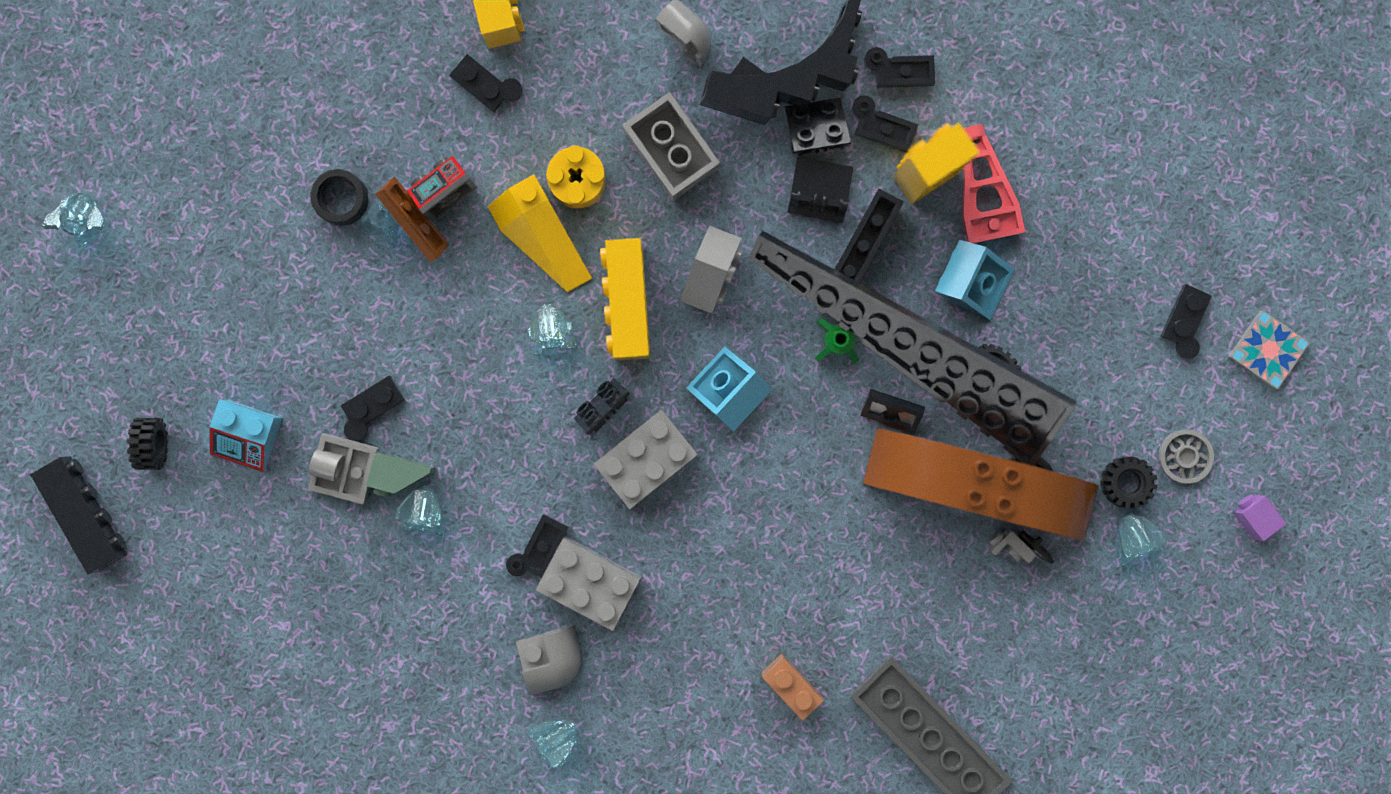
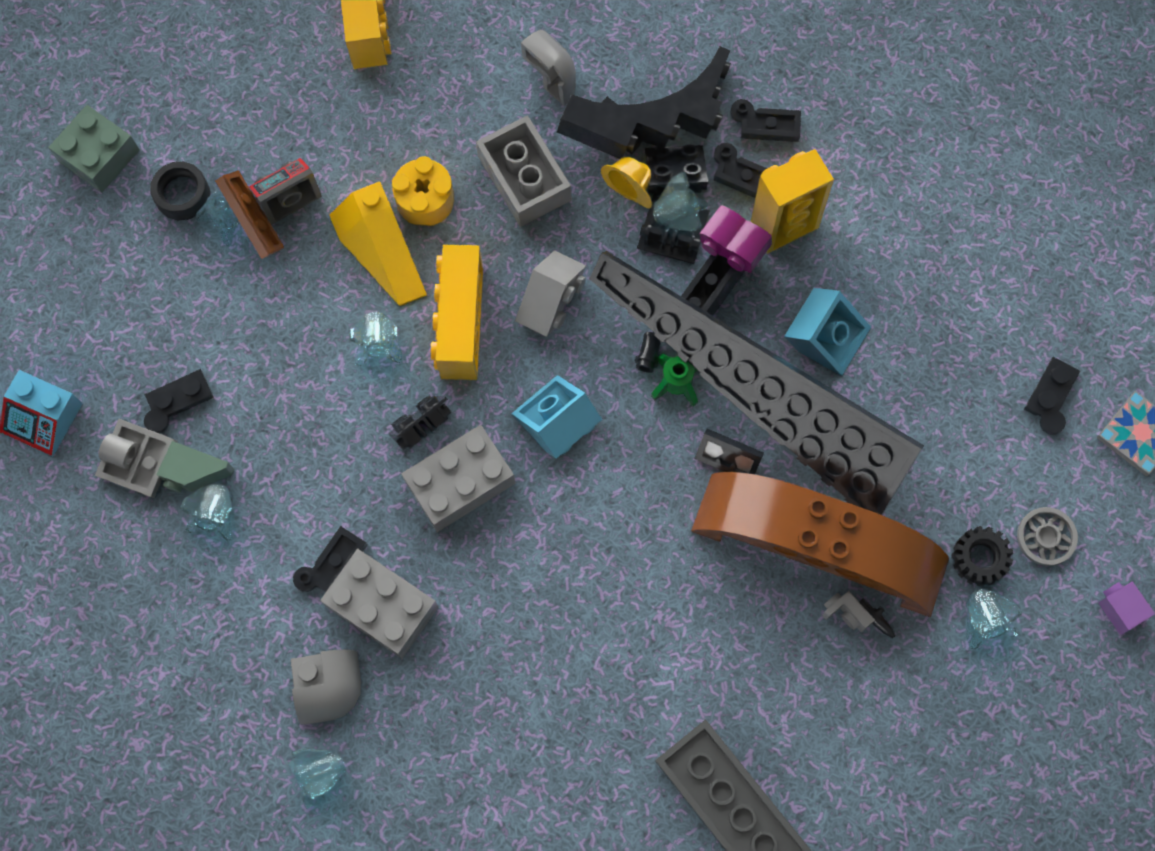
camera: 10 degrees right, 15 degrees down
(247, 162) = (94, 148): none -> sand green brick
(484, 85) = (343, 100): black hinge -> none
(775, 144) = (629, 179): none -> yellow piece
(792, 687) = (590, 741): nougat brick -> none
(808, 318) = (647, 358): none -> black pin
(823, 171) = (678, 207): none -> clear light blue brick
(884, 206) = (735, 239): none -> magenta brick
(994, 223) = (855, 276): coral plate -> none

